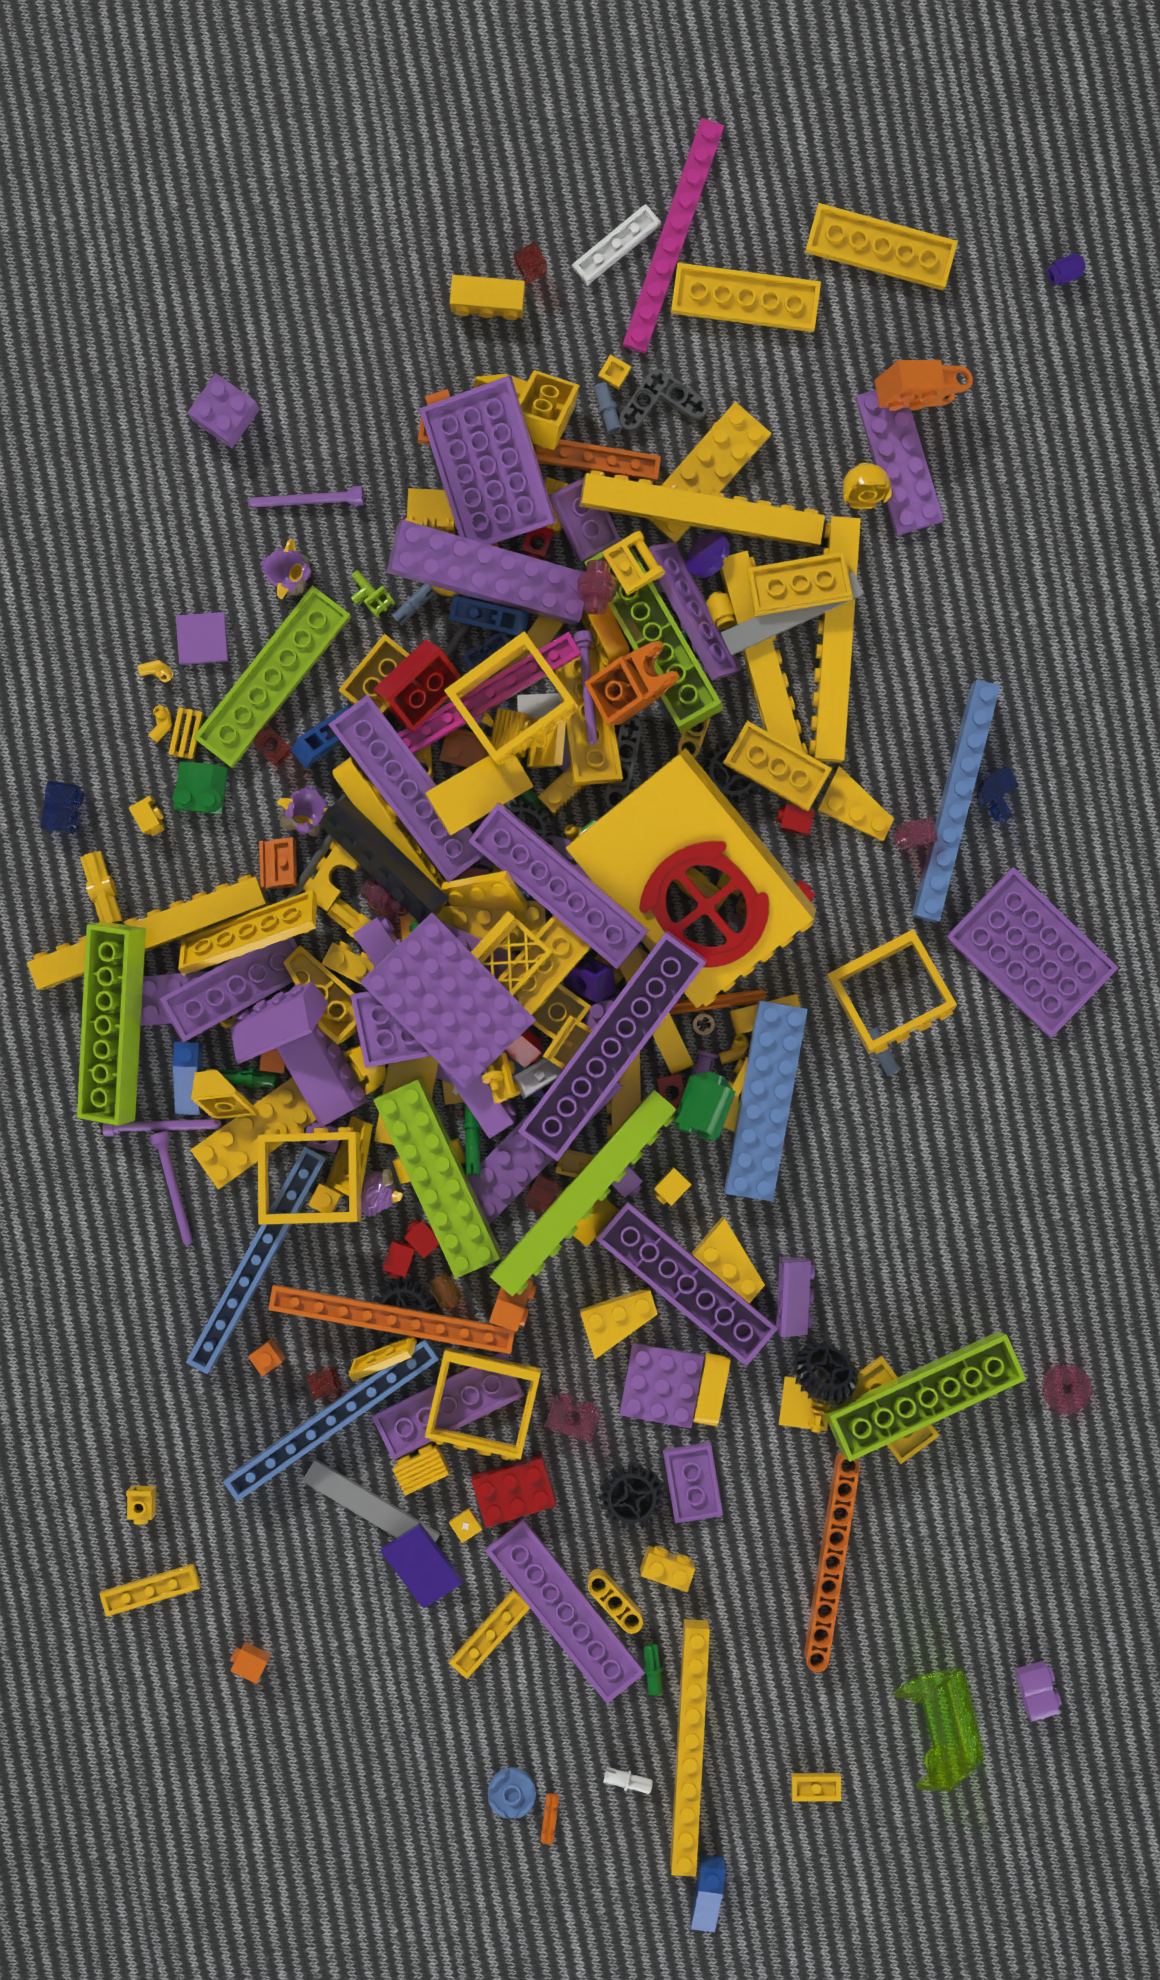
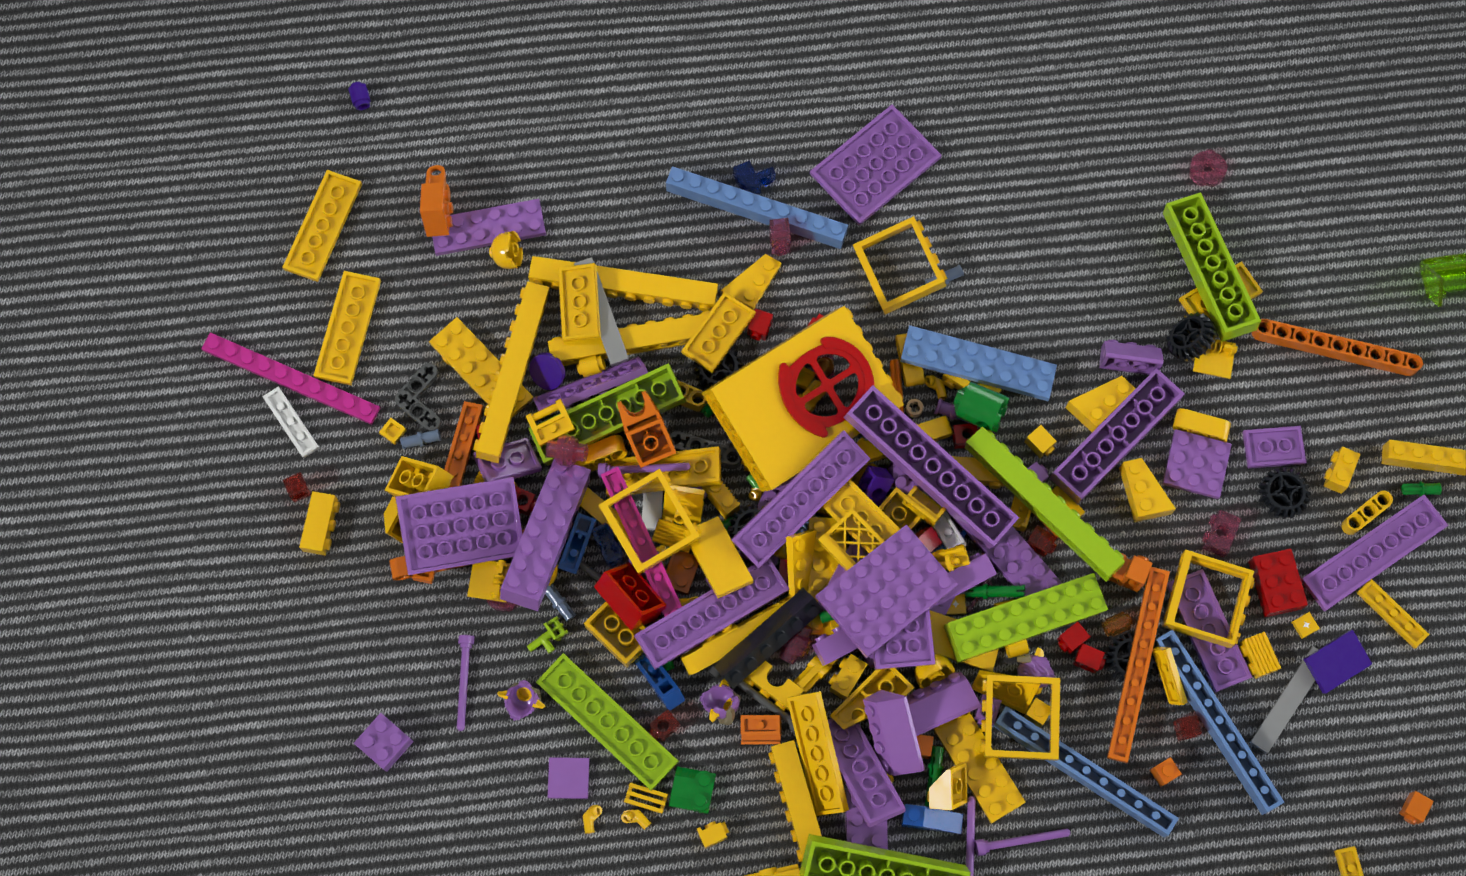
camera: 80 degrees left, 15 degrees down
(1037, 1690) = (1436, 207): medium lavender brick -> none

